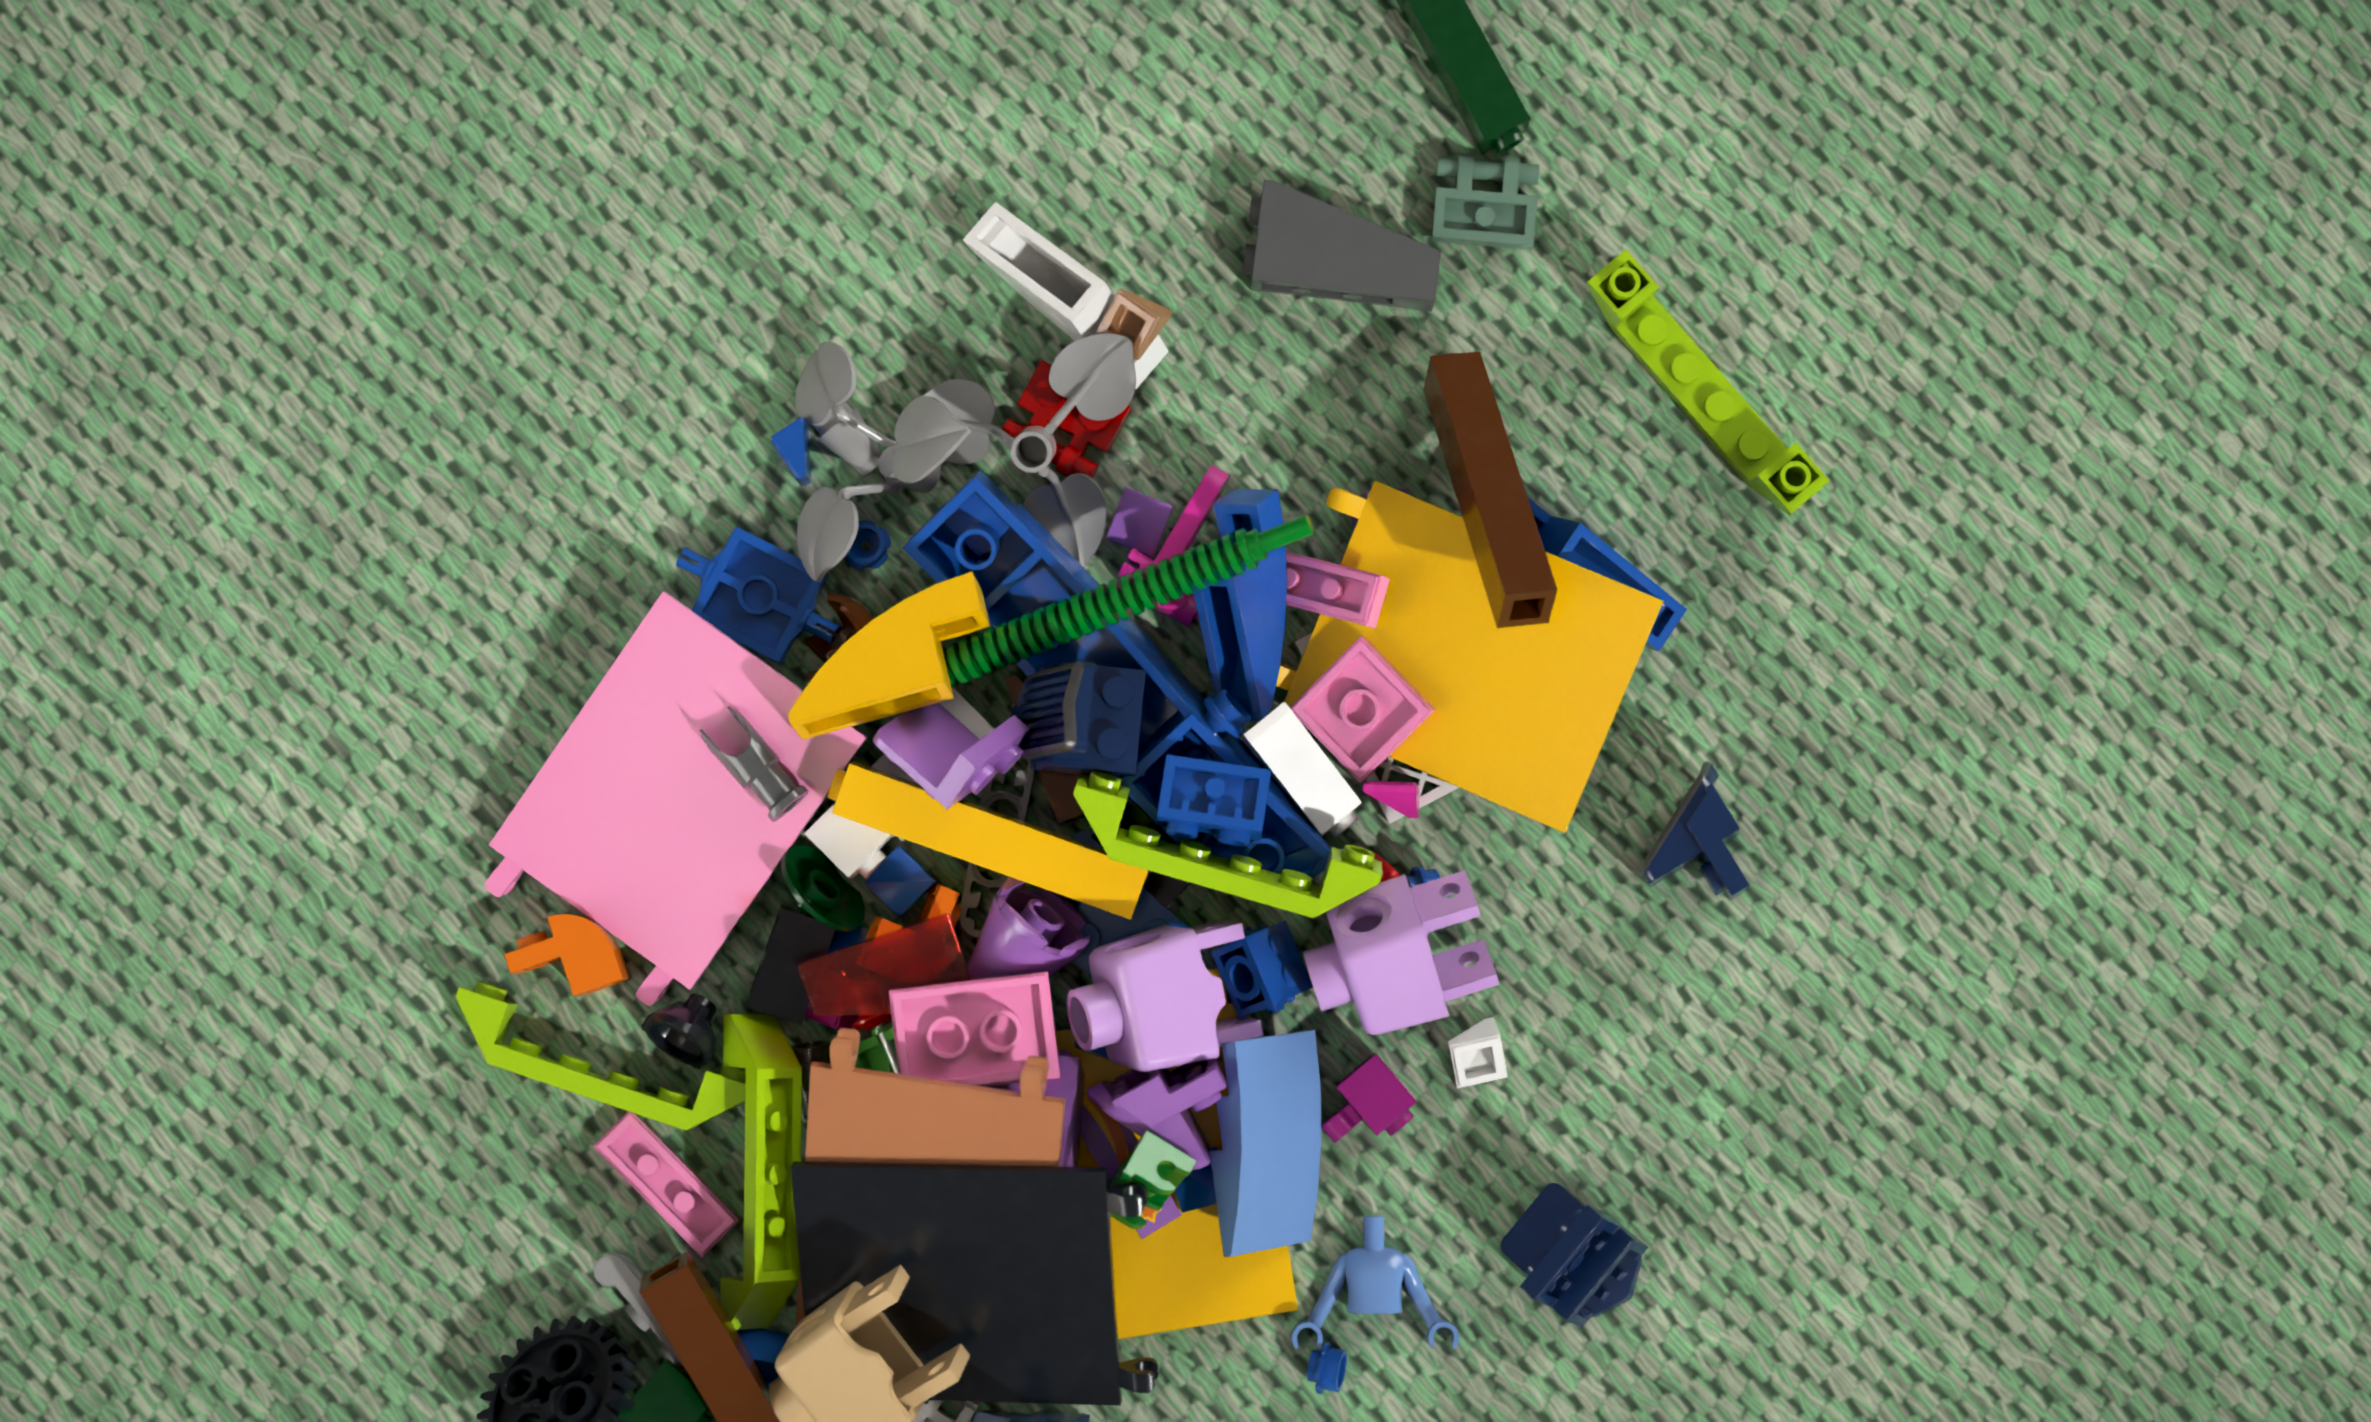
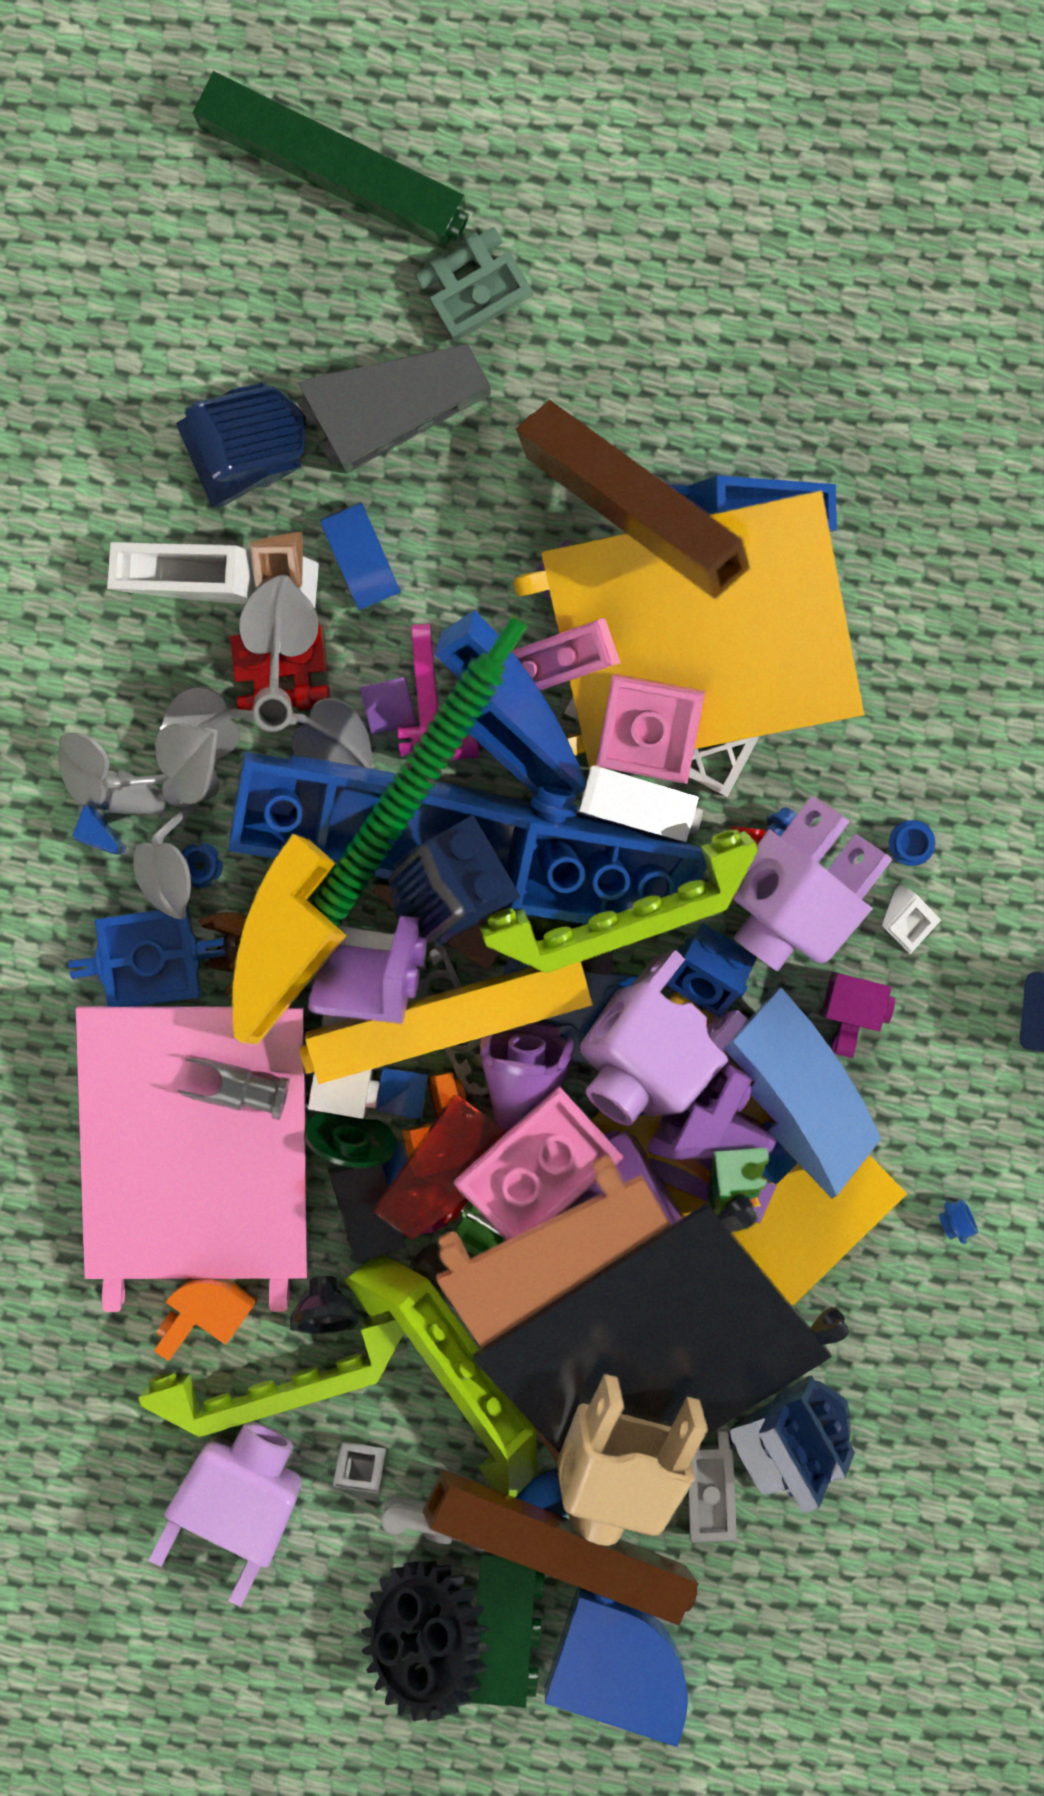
camera: 40 degrees left, 5 degrees up
(480, 1145) = (236, 1499): none -> lavender piece
(608, 1205) = (359, 1470): none -> flat silver slope
(667, 1183) = (390, 1425): bright pink tile -> none
(1178, 195) = (243, 440): none -> dark blue piece
(1210, 371) = (360, 555): none -> blue slope
(1213, 799) = (591, 874): blue bracket -> none
(1374, 1285) = (951, 1139): medium blue piece -> none
(1397, 795) = (718, 773): dark pink slope -> none
(1529, 986) = (911, 843): none -> blue plate
(1697, 831) = (960, 641): dark blue piece -> none
(1699, 388) = (731, 312): lime slope -> none

